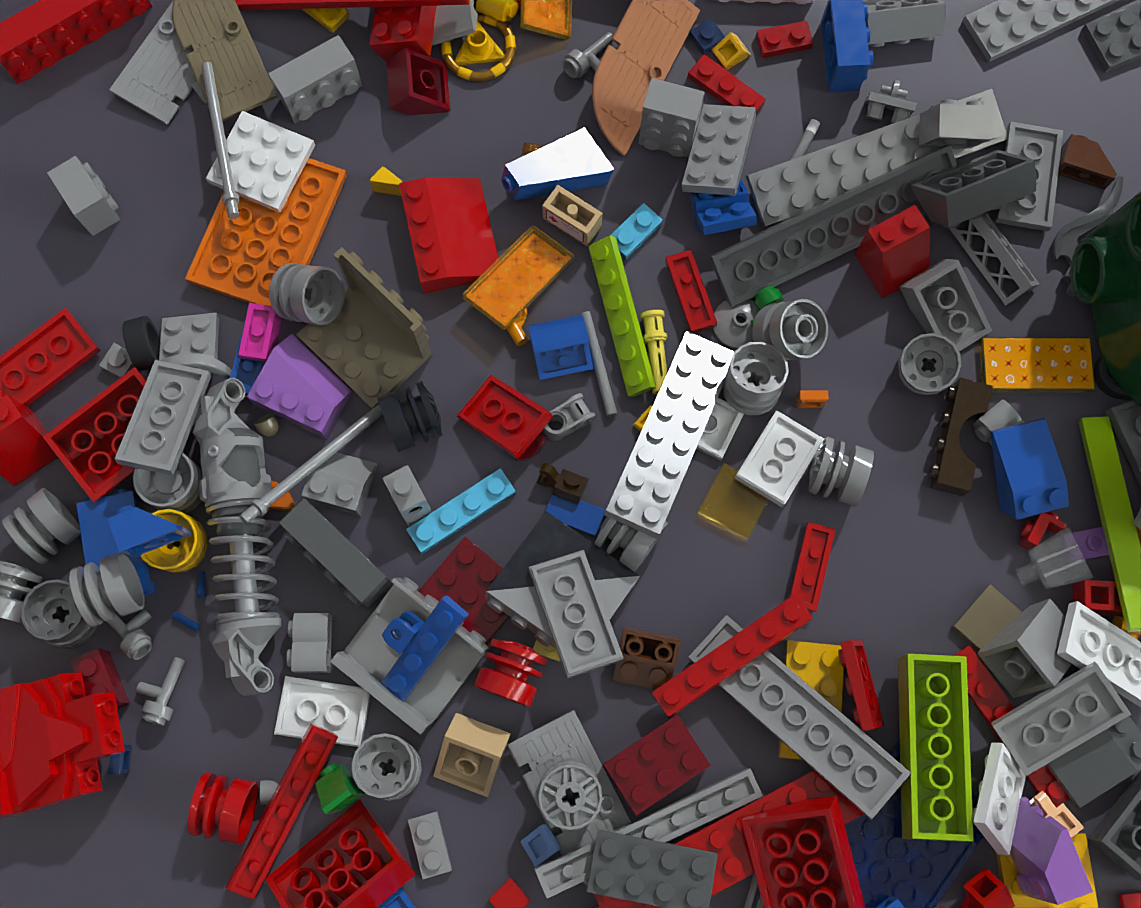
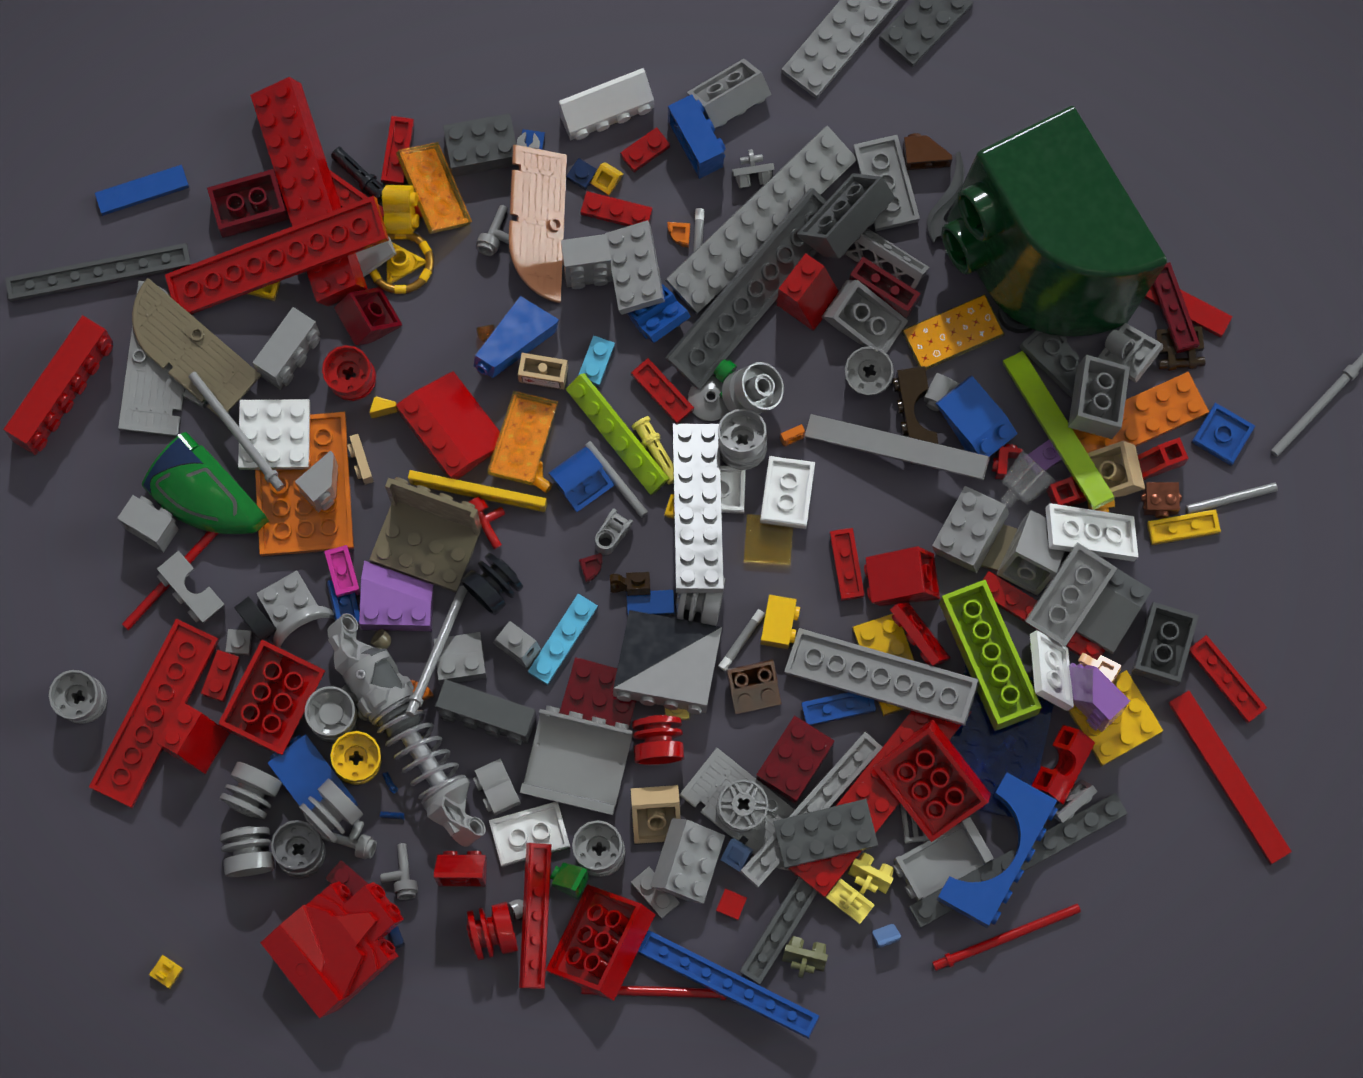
camera: 25 degrees left, 0 degrees up
(82, 387) = (220, 676): none -> red plate
(85, 260) = (201, 605): none -> light grey arch
(142, 532) = (342, 752): blue slope -> none
(156, 184) = (200, 491): none -> green panel
(161, 232) = (160, 589): none -> red bar
(163, 417) = (308, 666): light grey plate -> none
(222, 719) = (461, 870): none -> red slope
(279, 227) = (320, 483): none -> light grey slope
(306, 293) = (367, 524): light grey wheel -> none
(339, 216) = (356, 450): none -> tan plate
(367, 118) = (345, 361): none -> red wheel
(419, 644) = (582, 749): blue plate -> none
(435, 329) = (485, 520): none -> red piece
(445, 312) = (476, 490): none -> yellow tile
(479, 829) = (687, 860): none -> light grey brick
(504, 416) = (563, 552): red tile -> none
(575, 614) = (686, 675): light grey tile -> none
(656, 599) = (741, 640): none -> light grey bar
(707, 598) = (778, 622): none -> yellow brick
(728, 725) = (836, 708): none -> blue plate
(732, 656) = (816, 655): red plate -> none
(783, 137) = (679, 233): none -> orange tile
(841, 471) = (837, 482): light grey wheel -> none
(867, 609) = (902, 577): none -> red slope
(927, 463) = (897, 447): none -> light grey tile
(956, 124) = (816, 170): light grey brick -> none
(970, 590) = (970, 529): none -> light grey brick
(989, 286) = (886, 286): none -> dark red brick

